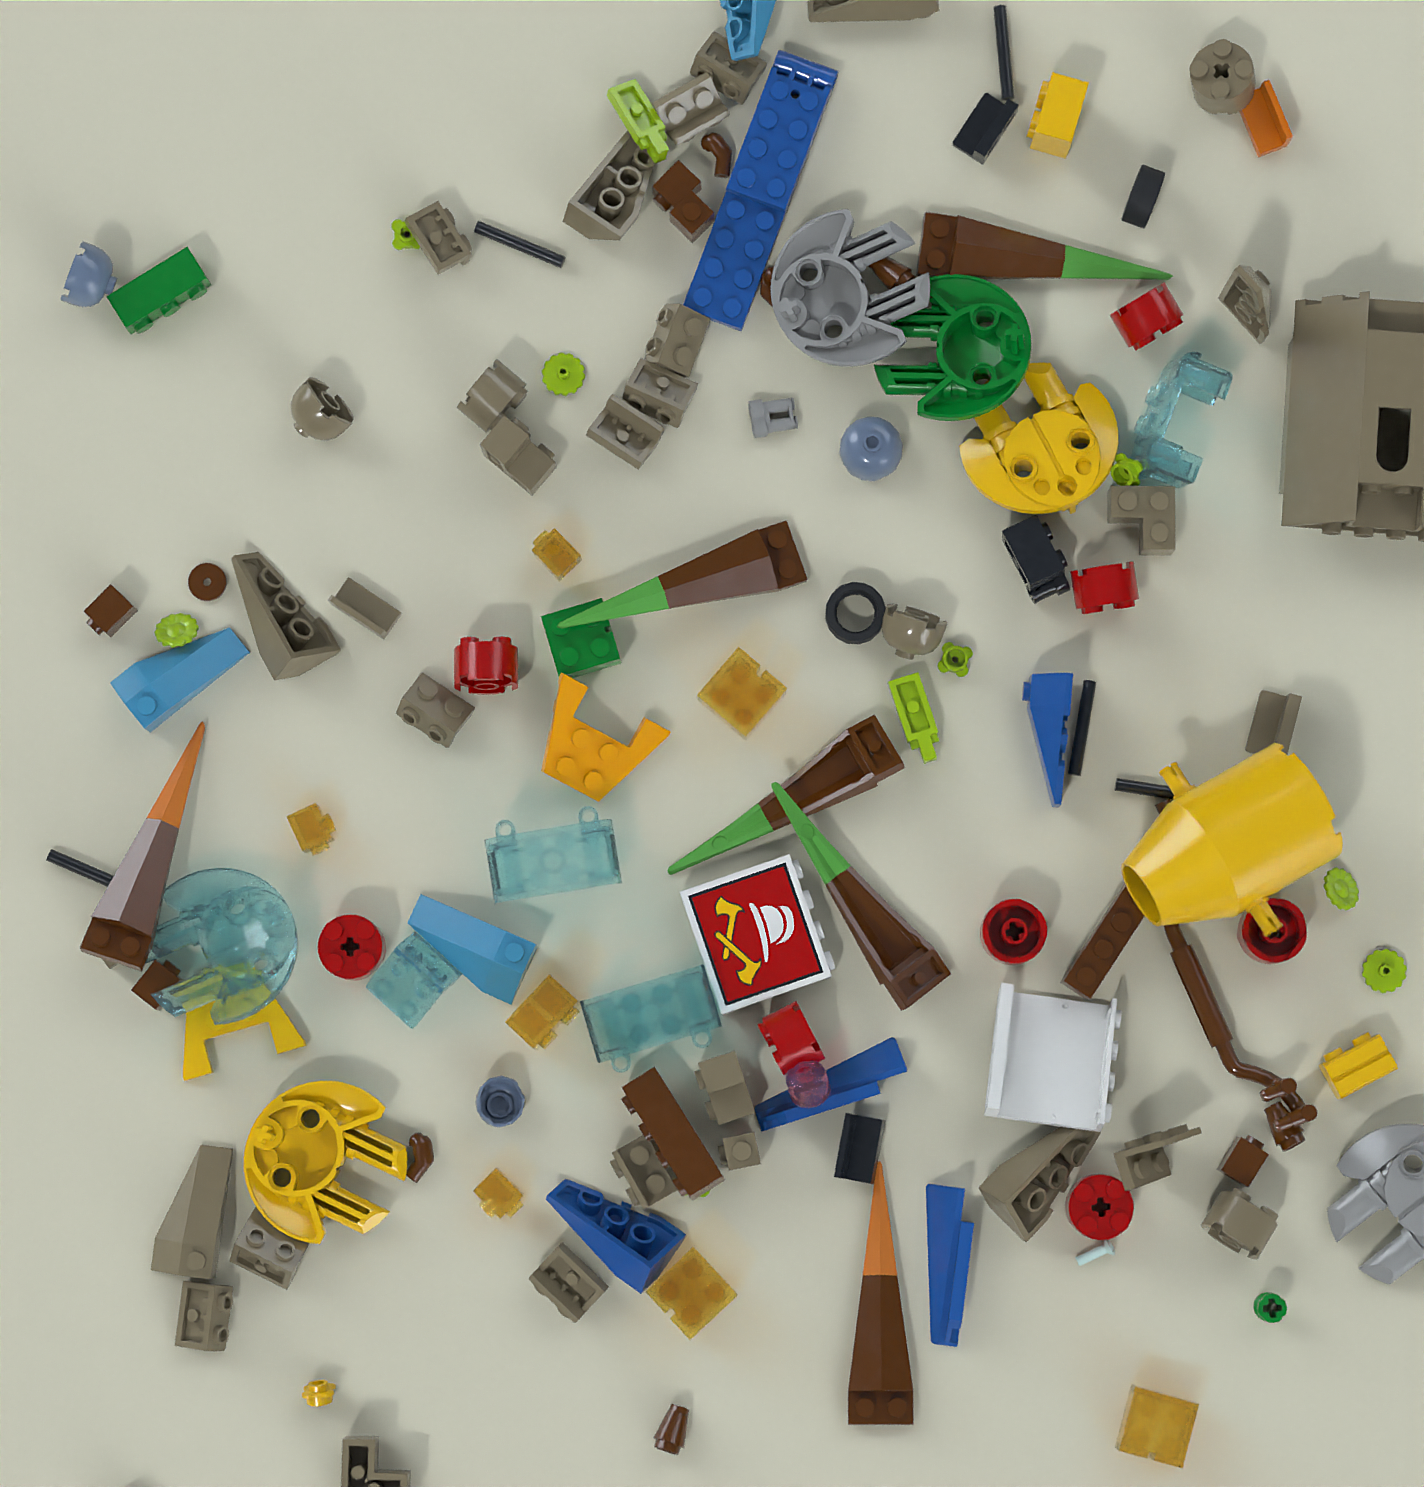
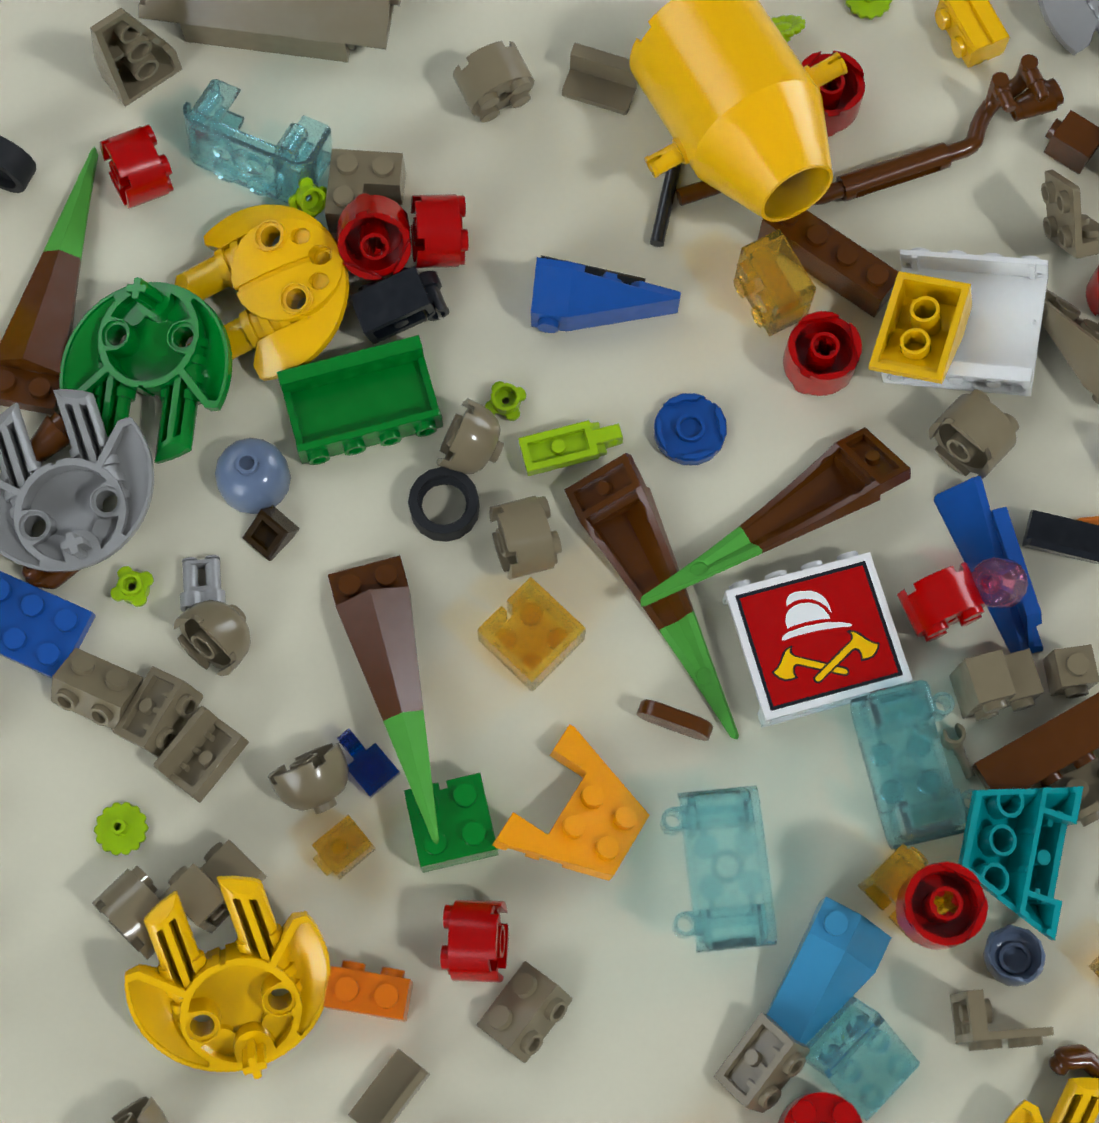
camera: 90 degrees left, 10 degrees down
(403, 900) = (762, 1064): none -> dark tan bracket
(439, 476) = (230, 984): none -> yellow piece
(440, 585) = (369, 993): none -> orange brick
(449, 1066) = (971, 1019): none -> dark tan bracket
(516, 1009) = (962, 898): none -> red brick
(583, 1099) = (1017, 847): none -> teal wedge
(609, 523) = (312, 779): none -> dark tan cylinder
(625, 571) = (370, 766): none -> clear blue plate
(669, 1059) = (958, 749): none -> dark tan hand
(679, 818) = (675, 719): none -> reddish brown tile
(726, 432) = (214, 635): none -> dark tan cylinder
(770, 366) = (139, 594): none -> lime plate
(822, 469) = (270, 532): none -> dark brown slope
(826, 681) = (524, 536): none -> dark tan brick
(940, 821) = (690, 429): none -> blue tile
(944, 534) = (360, 400): none -> green panel
(945, 1065) = (973, 434): none -> dark tan brick
(1034, 1015) = (922, 327): none -> yellow slope
(1075, 886) = (773, 283): none -> clear yellow piece
(1089, 530) = (374, 236): none -> red brick
(1258, 625) = (494, 80): none -> dark tan brick

